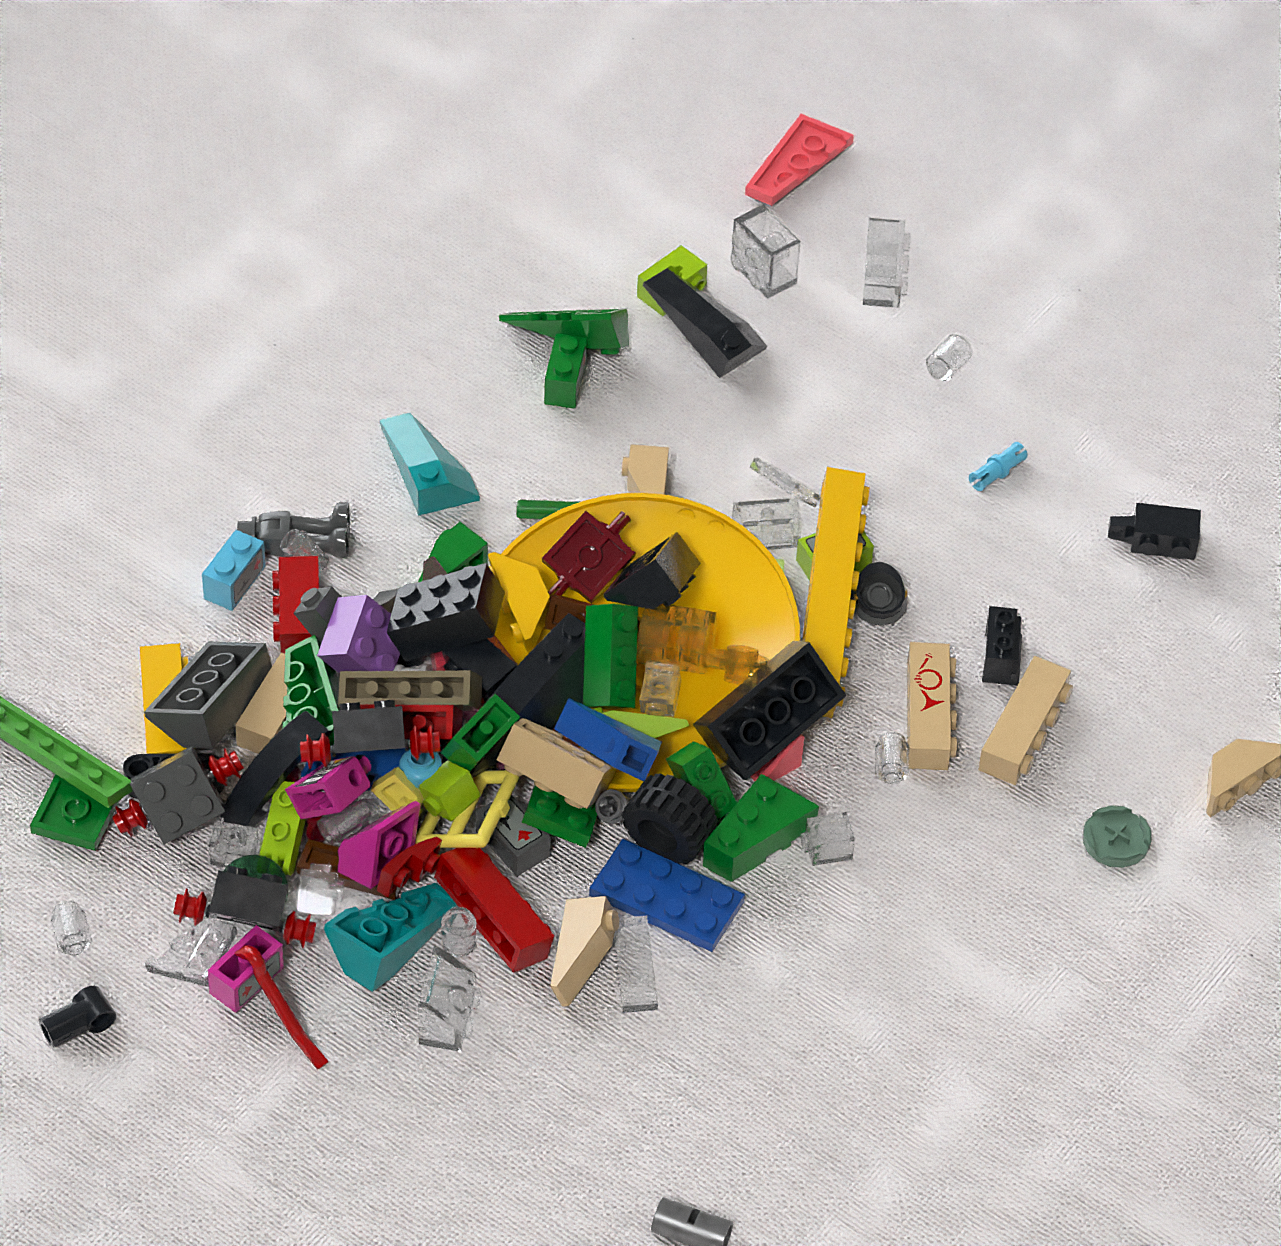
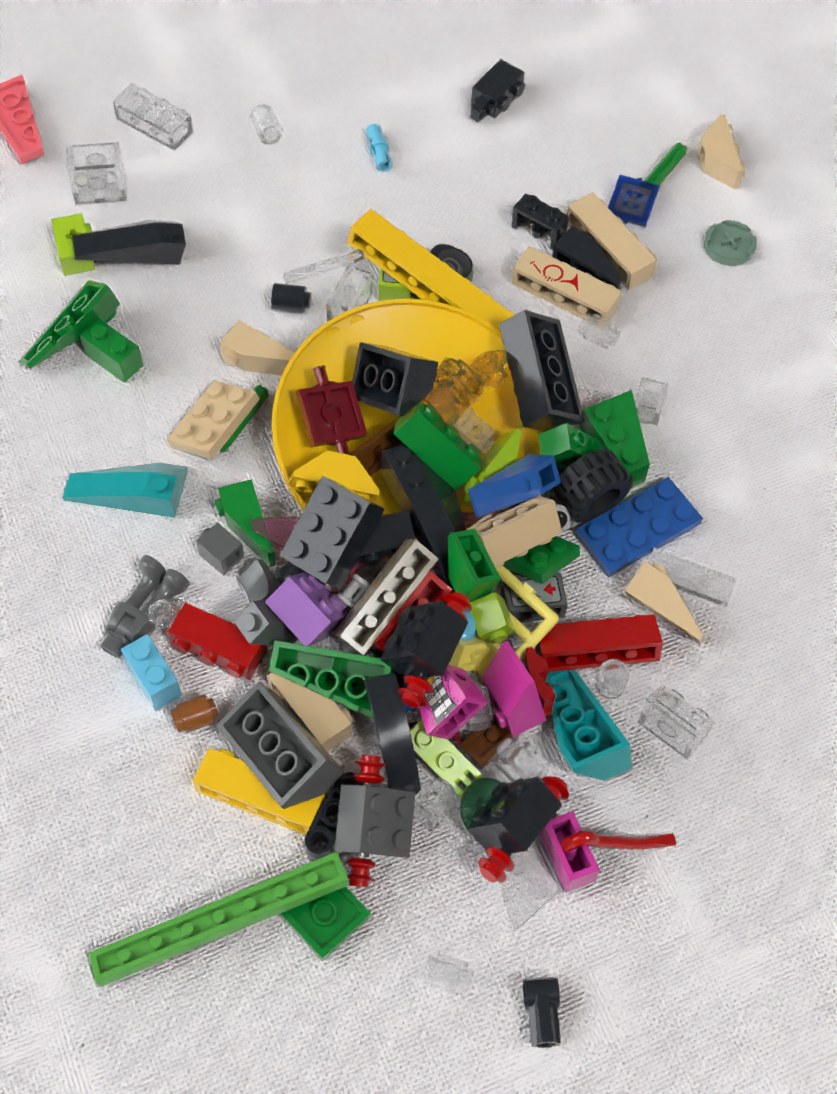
camera: 60 degrees left, 10 degrees up
(212, 622) = (194, 714): none -> dark orange brick
(400, 560) = (220, 548): none -> dark grey brick
(541, 485) = (213, 419): none -> tan plate
(736, 478) = (290, 298): none -> black brick
(981, 707) = (585, 255): none -> black slope
(1101, 719) = (633, 200): none -> piece
(1173, 731) = (667, 164): none -> green axle

